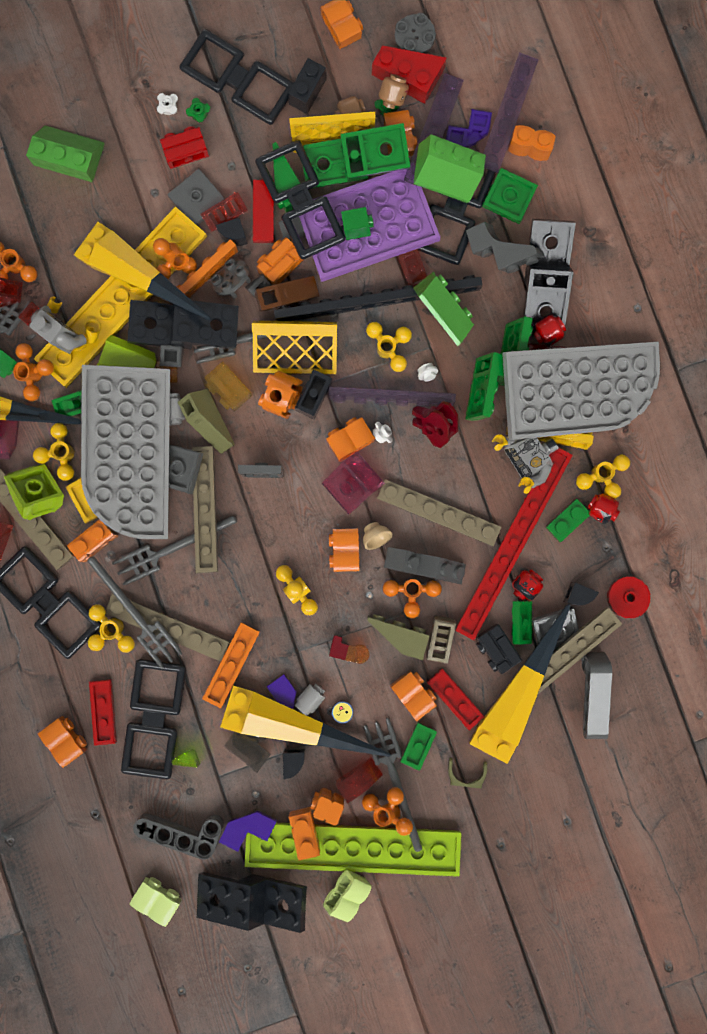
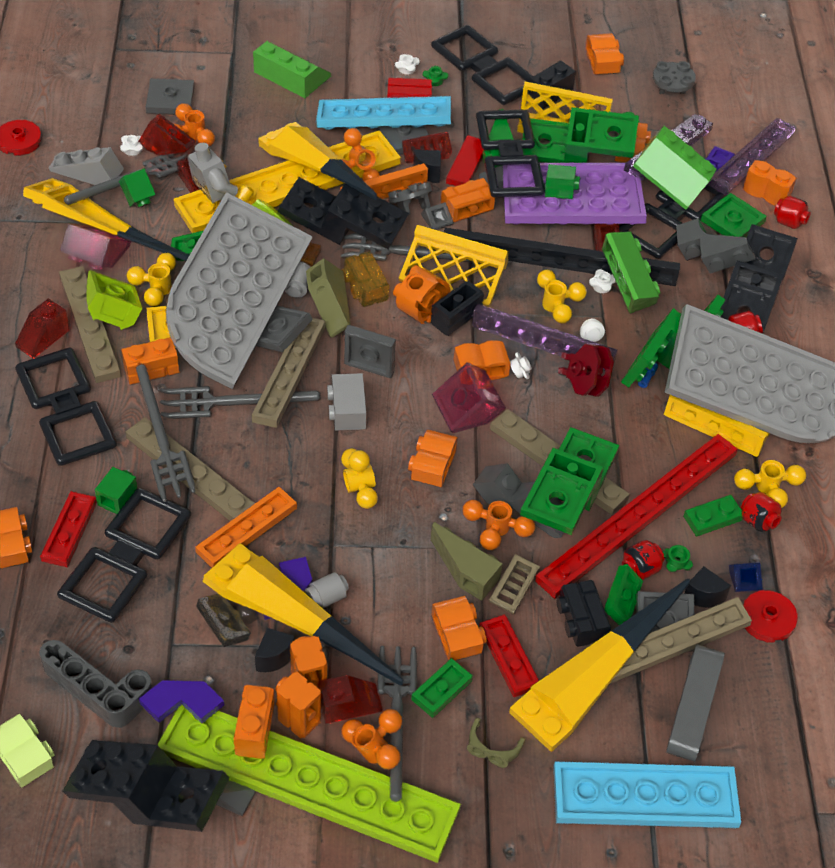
camera: 20 degrees right, 35 degrees down
(30, 372) = (163, 208): orange piece -> none
(97, 642) = (122, 437): yellow piece -> none
(122, 670) = (115, 489): none -> green brick
(171, 356) = (321, 237): dark grey slope -> none
(172, 184) = (384, 112): none -> medium azure plate
(187, 759) = (143, 604): clear neon green slope -> none
(261, 521) = (348, 401): none -> light grey brick
(286, 293) = (457, 215): reddish brown slope -> none
(310, 878) = (236, 797): none -> dark grey slope
(323, 774) = (308, 659): none -> orange brick
(342, 712) = (360, 621): light yellow tile -> none
(347, 896) = (276, 827): yellowish green brick -> none
(353, 653) = (394, 557): leg -> none
(376, 536) = (475, 456): tan piece -> none
(393, 91) = (638, 102): medium nougat head -> none
(415, 315) = (602, 281): none -> white plate
(418, 68) = (658, 100): red wedge -> none
(459, 548) = (570, 480): none -> green bracket
(529, 458) = (682, 431): torso -> none
(550, 578) = (677, 552): none -> green plate
(558, 170) = (792, 212): none -> red head
(580, 776) = (646, 795): none -> medium azure plate
(604, 567) = (746, 577): none -> clear blue slope

